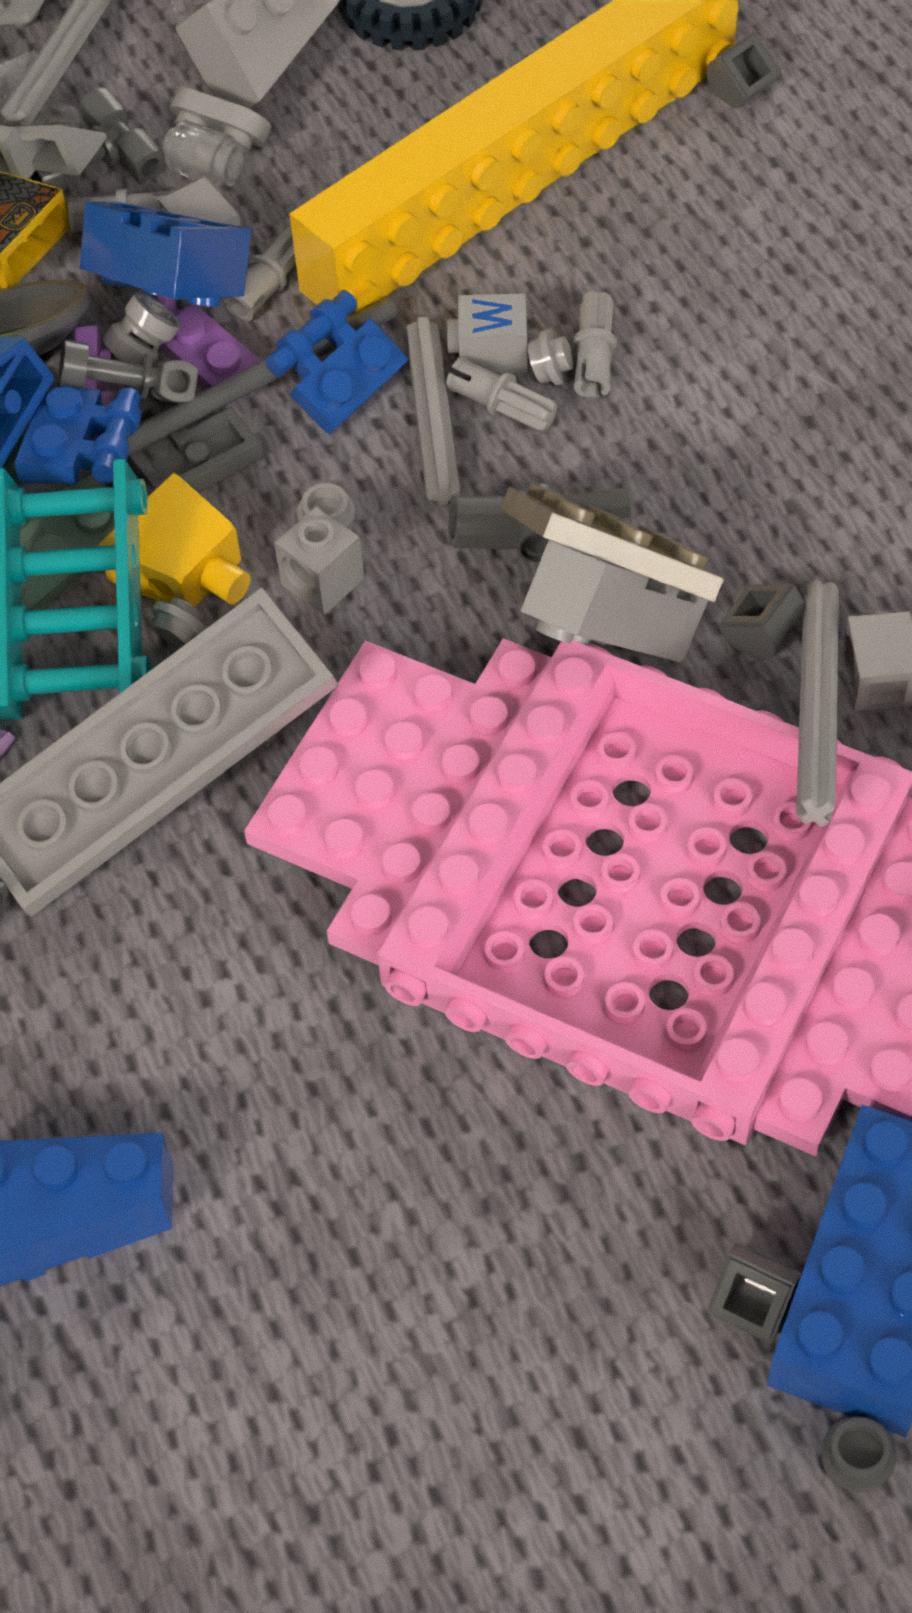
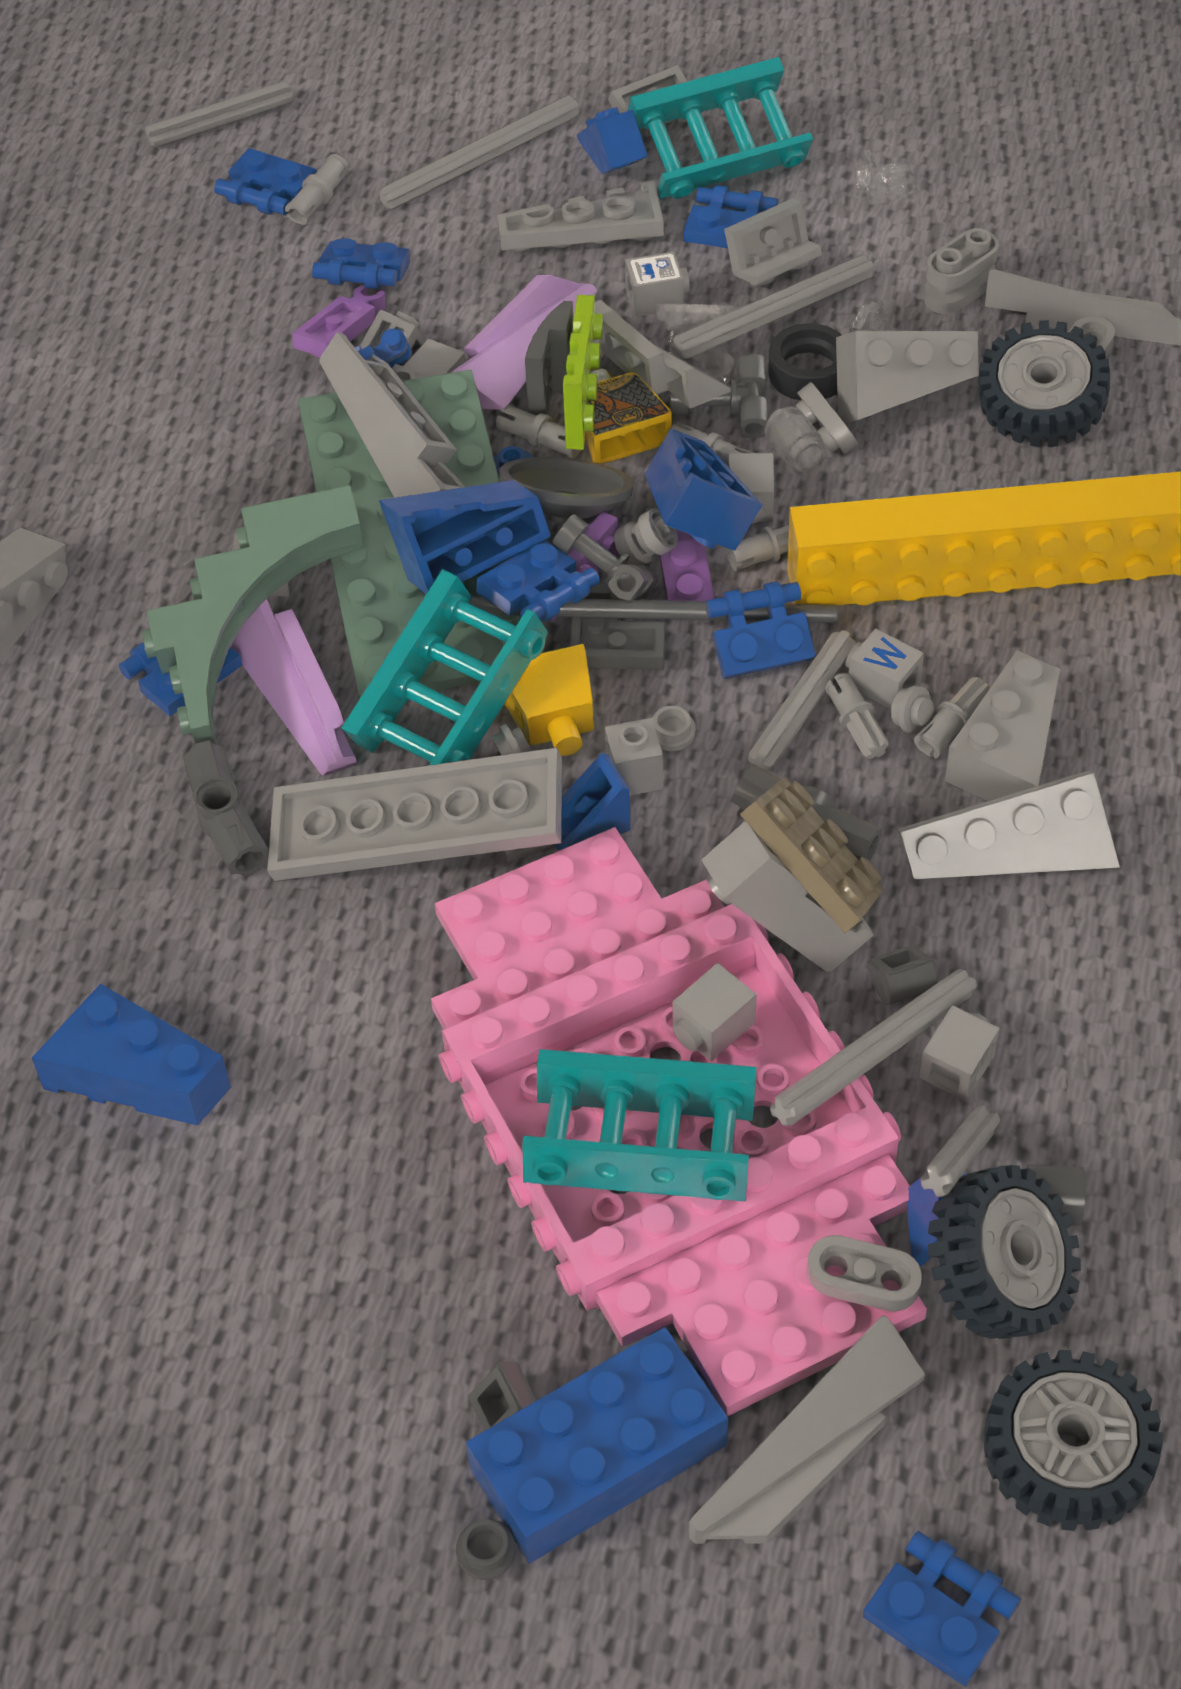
camera: 35 degrees right, 5 degrees down
(141, 46) = (799, 340): none -> black tyre
(329, 620) = (595, 803): none -> blue slope
(645, 760) = (713, 1012): none -> light grey brick
(650, 870) = (644, 1086): none -> teal fence
(673, 333) = (1007, 733): none -> light grey wedge
(759, 417) = (1023, 832): none -> light grey wing

